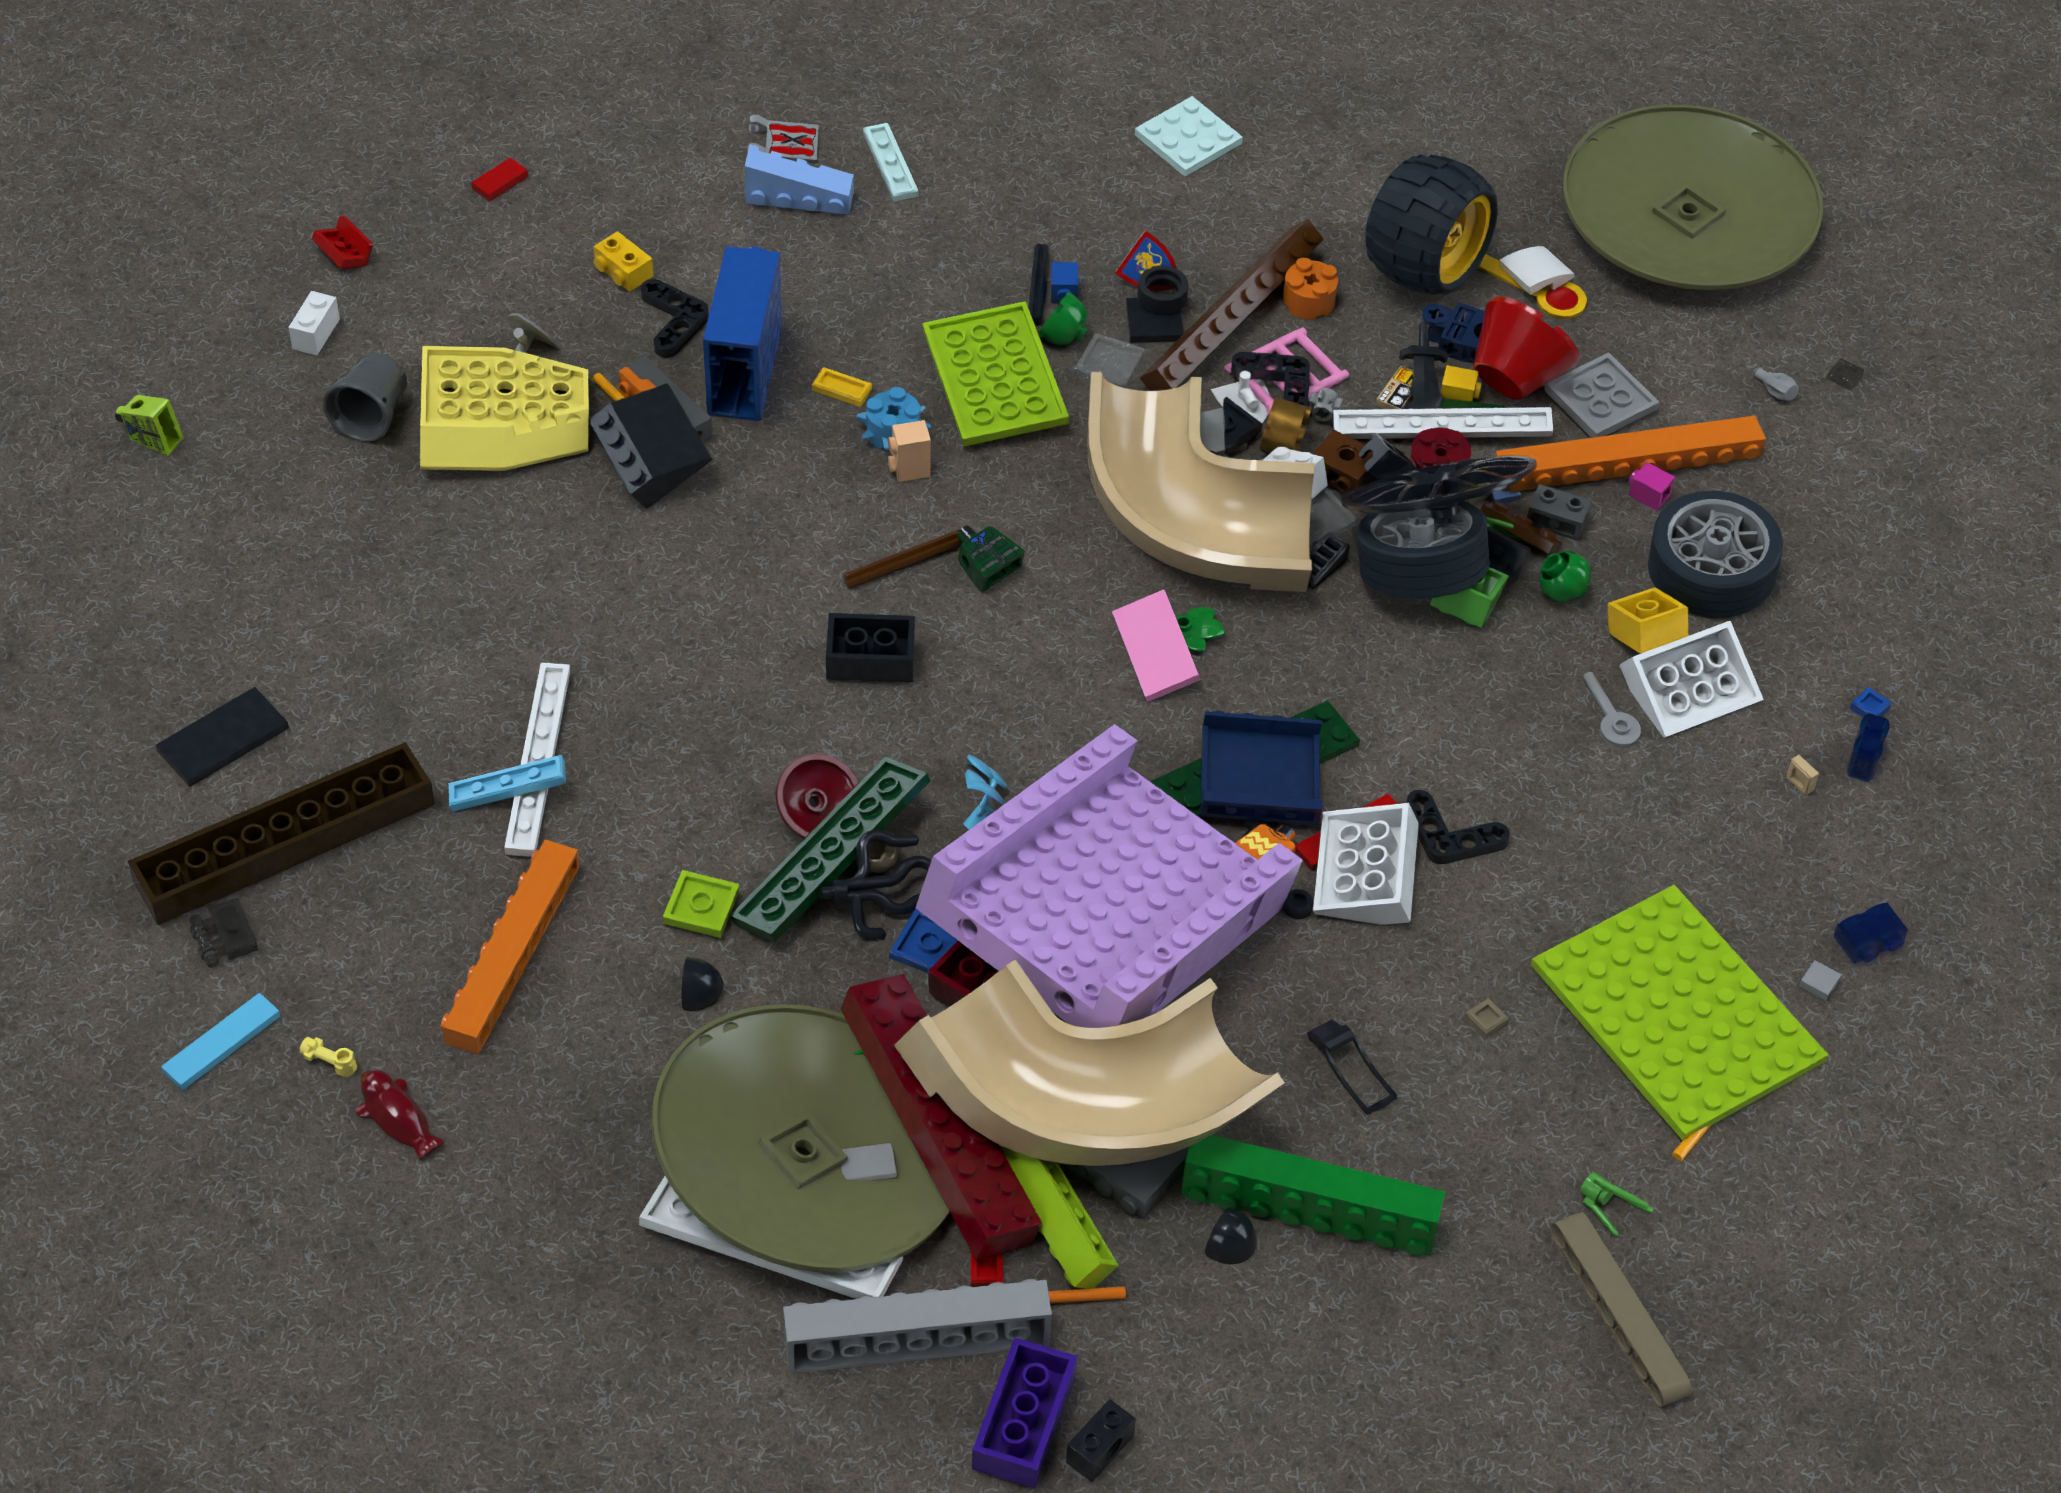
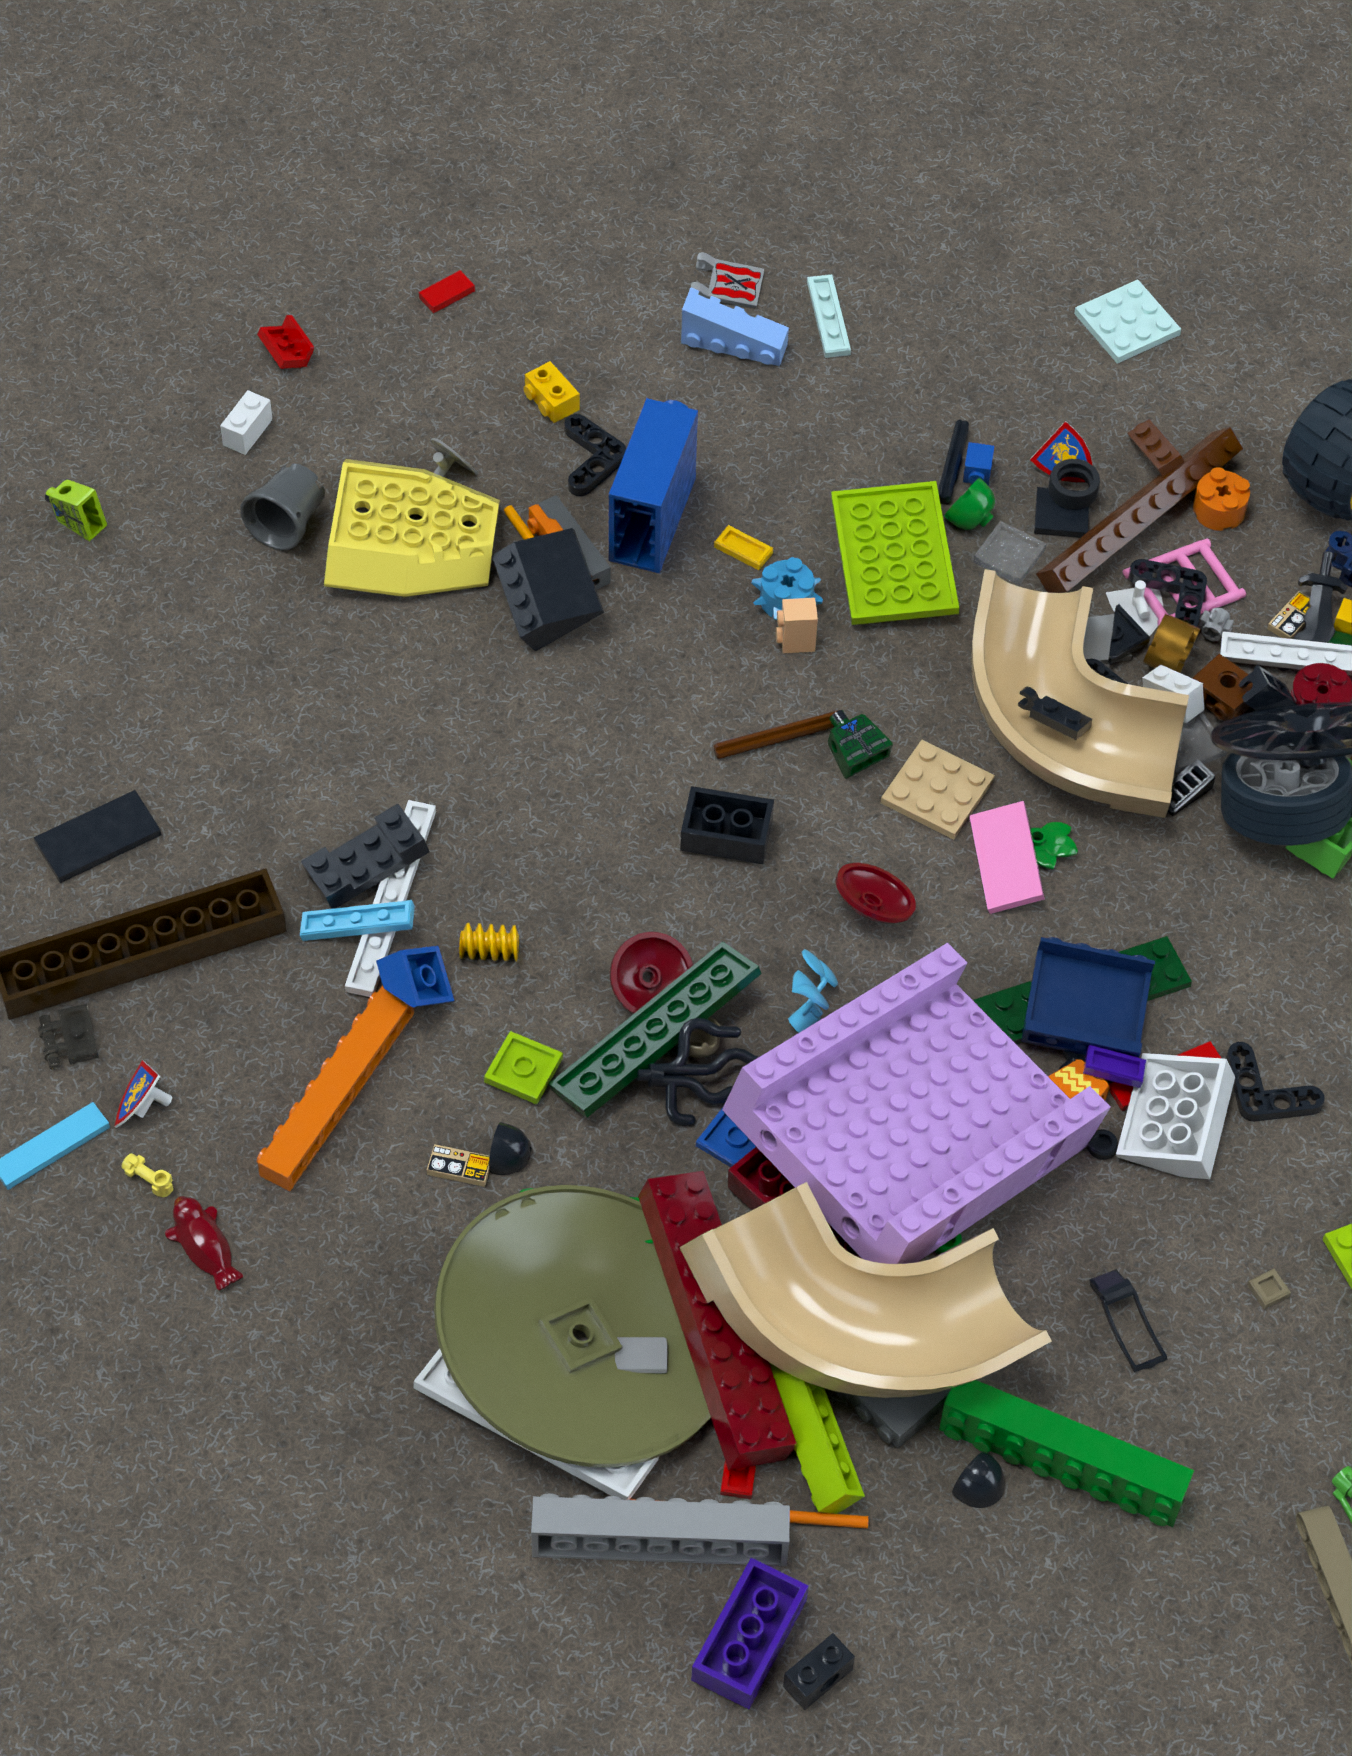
camera: 10 degrees right, 5 degrees up
(308, 978) = (141, 1094): none -> shield
(507, 722) = (366, 857): none -> black piece
(577, 826) = (416, 976): none -> blue slope
(646, 787) = (488, 942): none -> yellow piece
(650, 1006) = (459, 1165): none -> tile
(1030, 694) = (875, 893): none -> dark red dish
(1075, 591) = (937, 789): none -> tan plate
(1182, 502) = (1054, 714): none -> black plate
(1237, 247) = (1155, 447): none -> reddish brown plate
(1298, 826) = (1114, 1066): none -> dark purple tile

